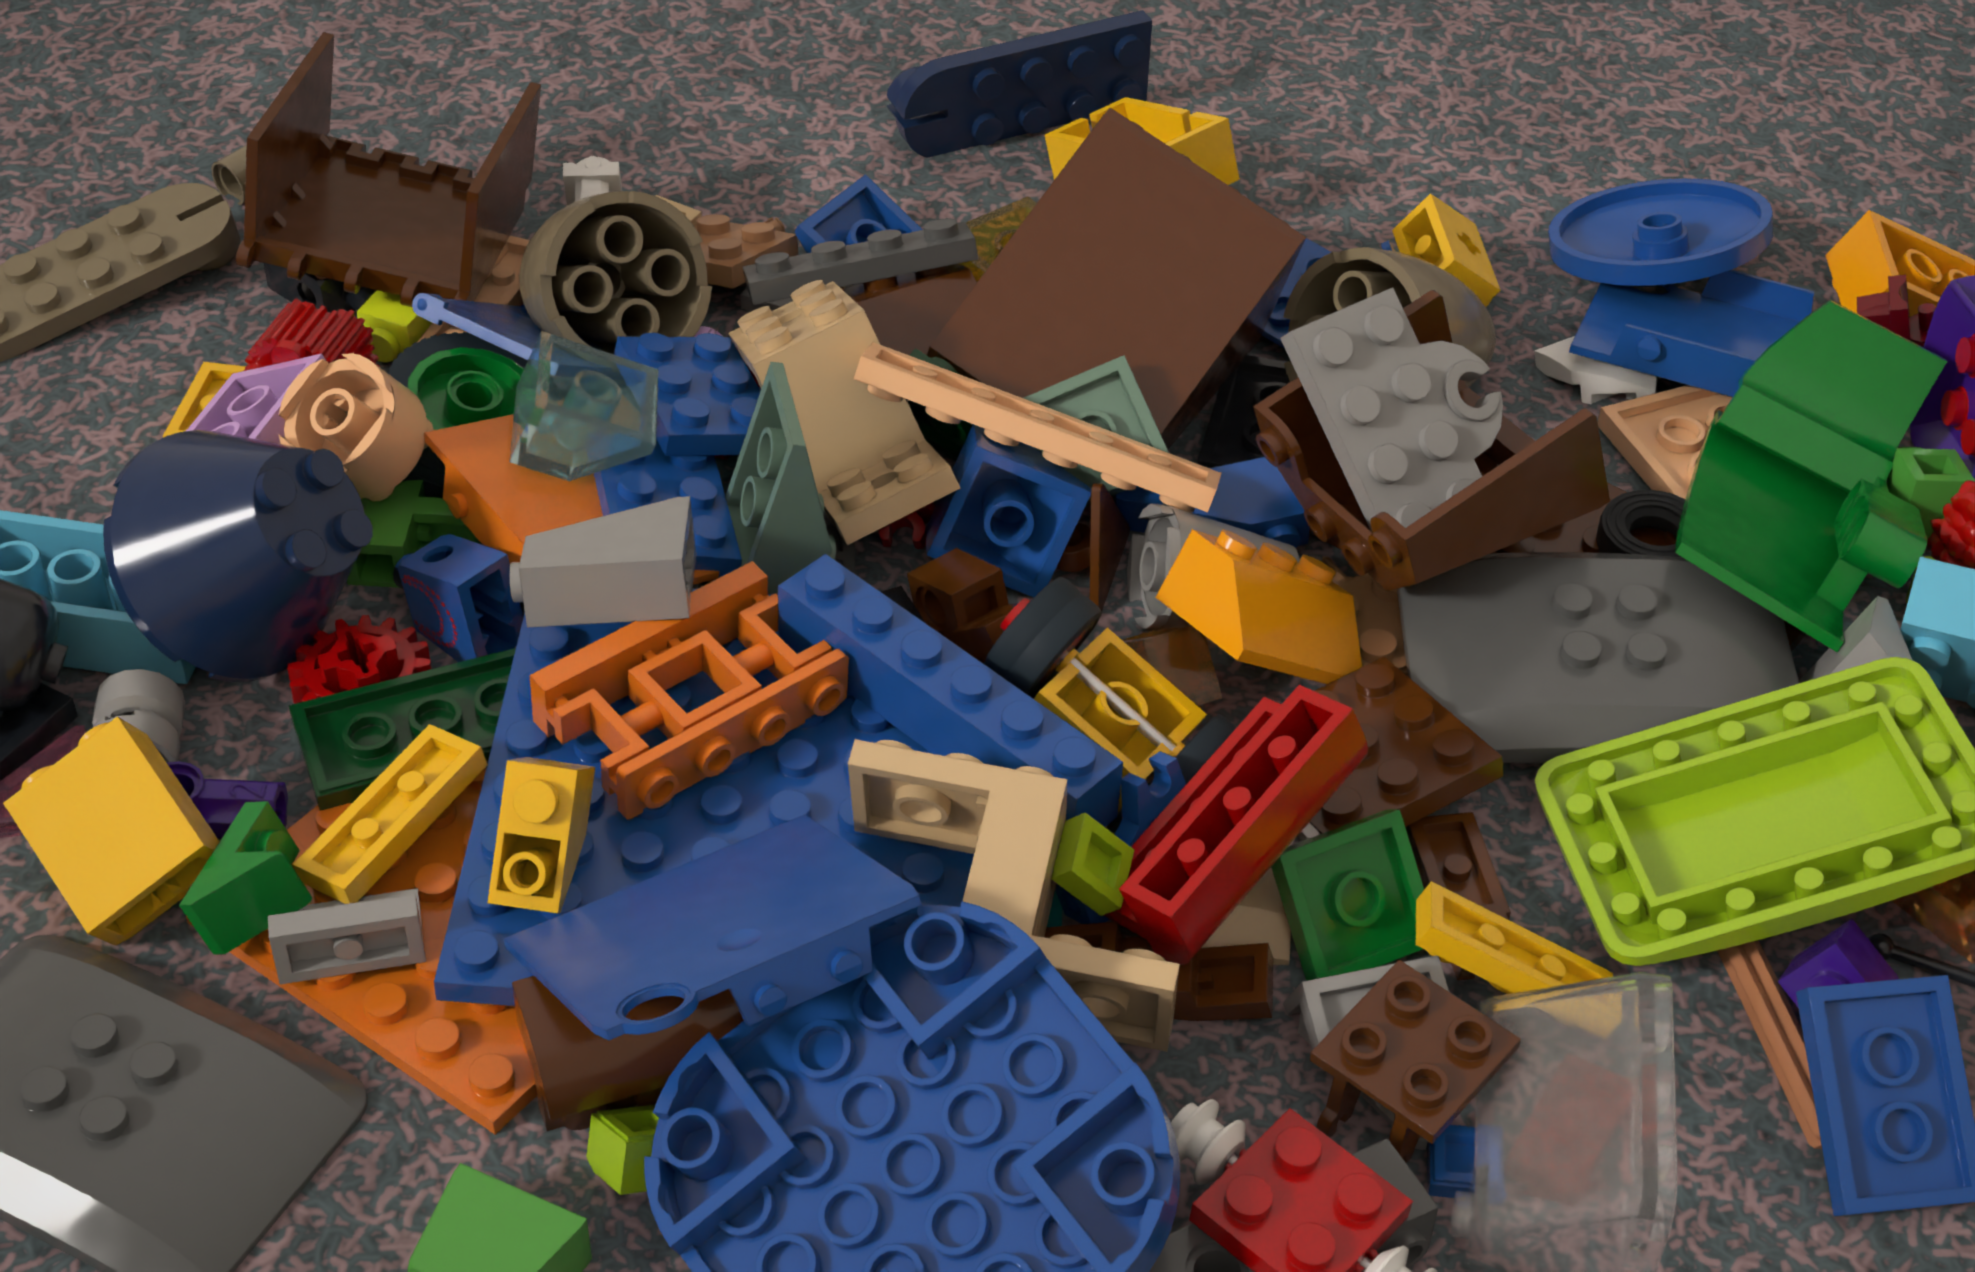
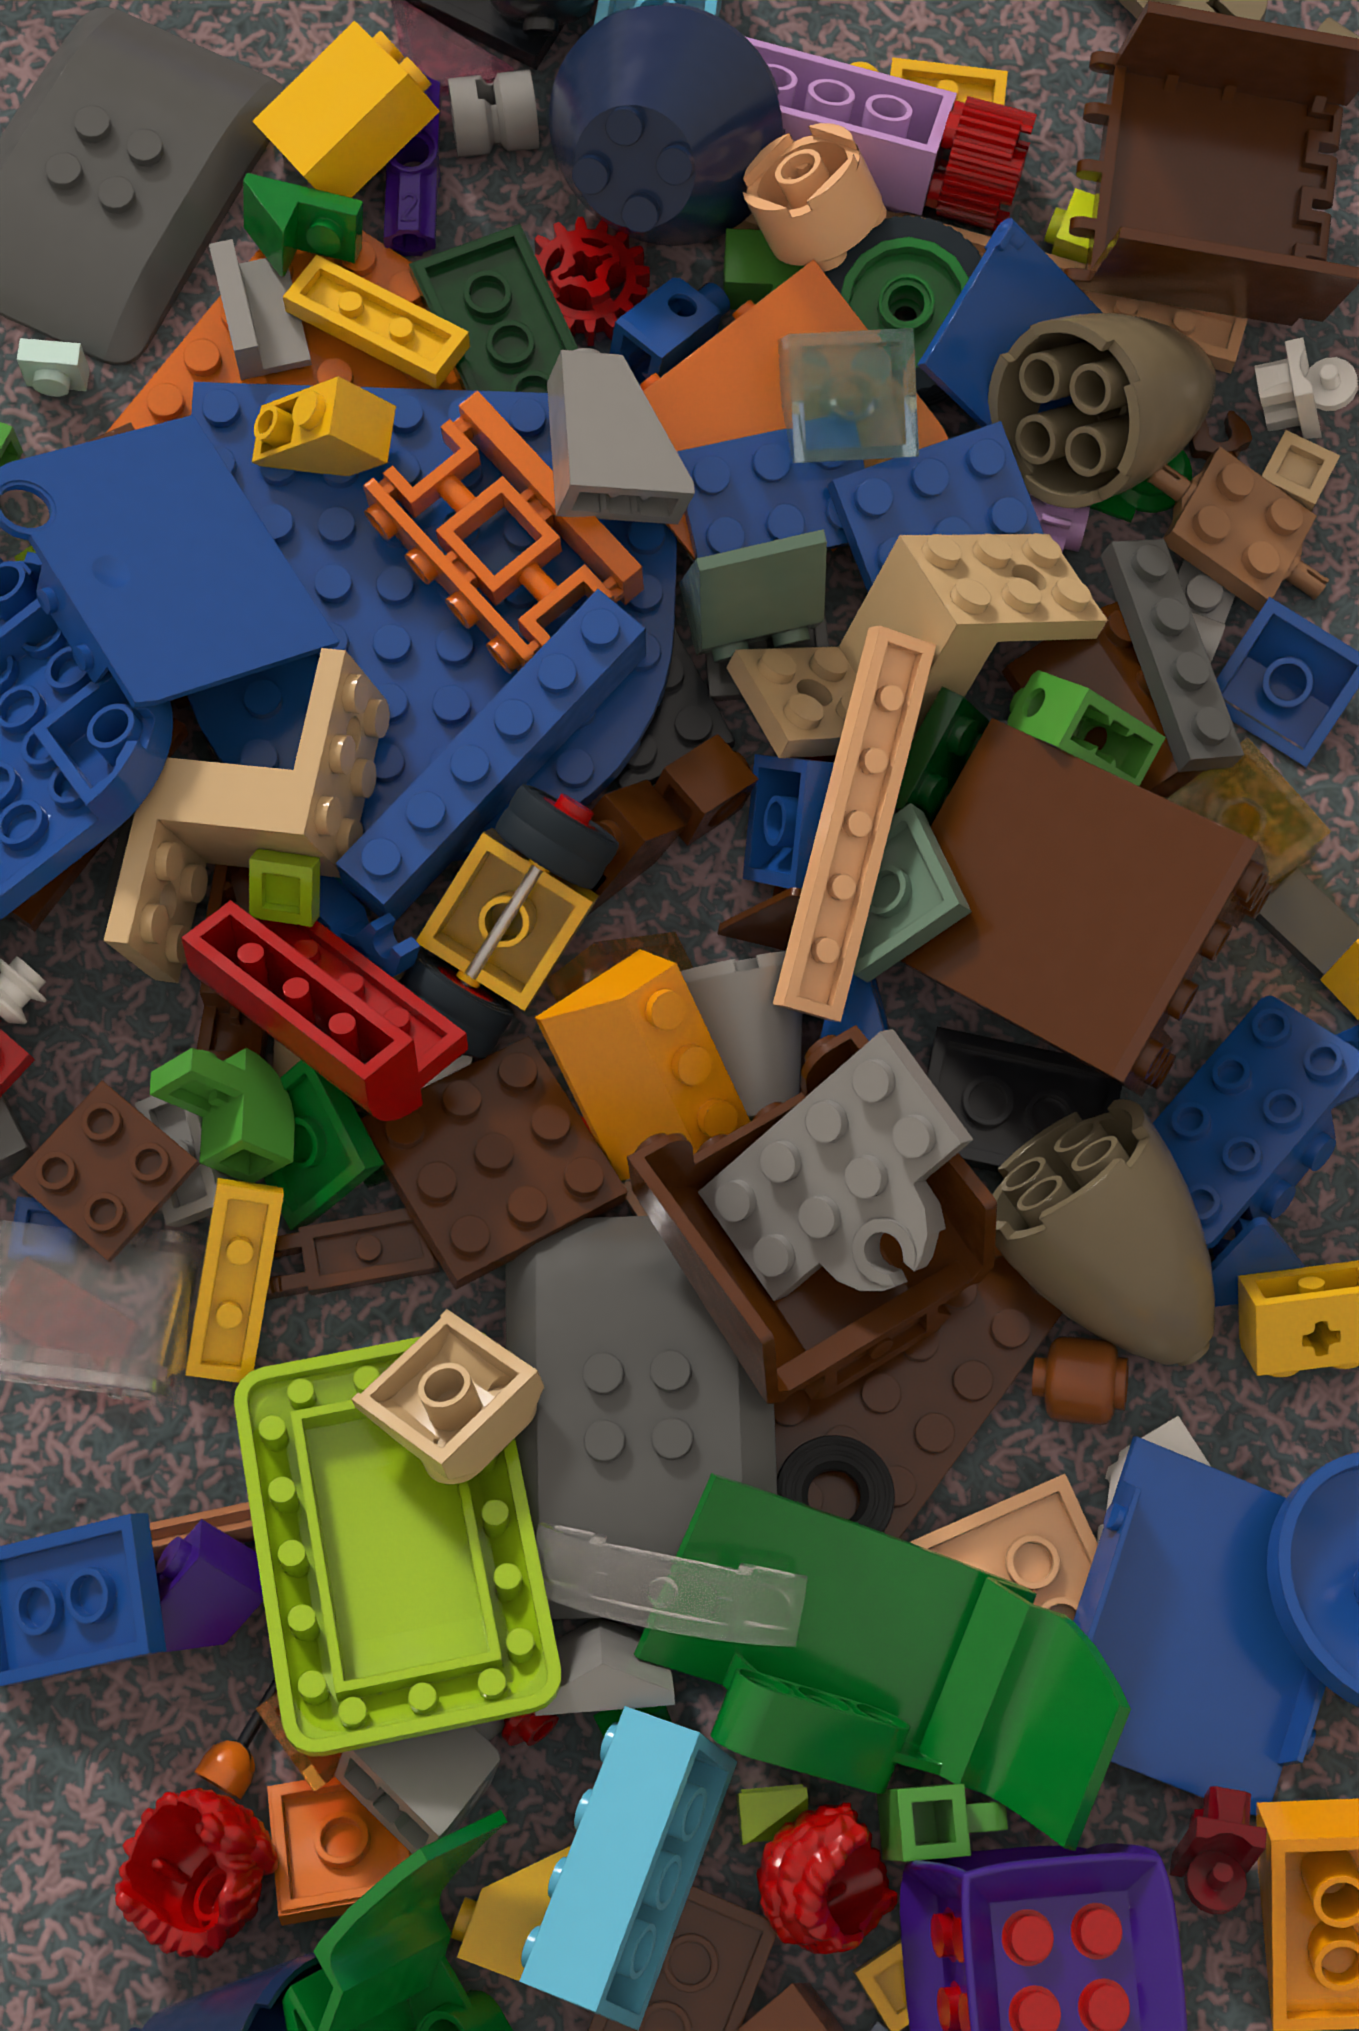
camera: 85 degrees right, 30 degrees up
(369, 1147) = (53, 366): none -> light aqua plate
(938, 280) = (1064, 714): none -> bright green torso
(1336, 936) = (242, 1110): none -> bright green brick
(1525, 388) = (1081, 1380): none -> dark orange head
(1626, 751) = (453, 1399): none -> tan slope
(1785, 607) = (670, 1591): none -> clear slope

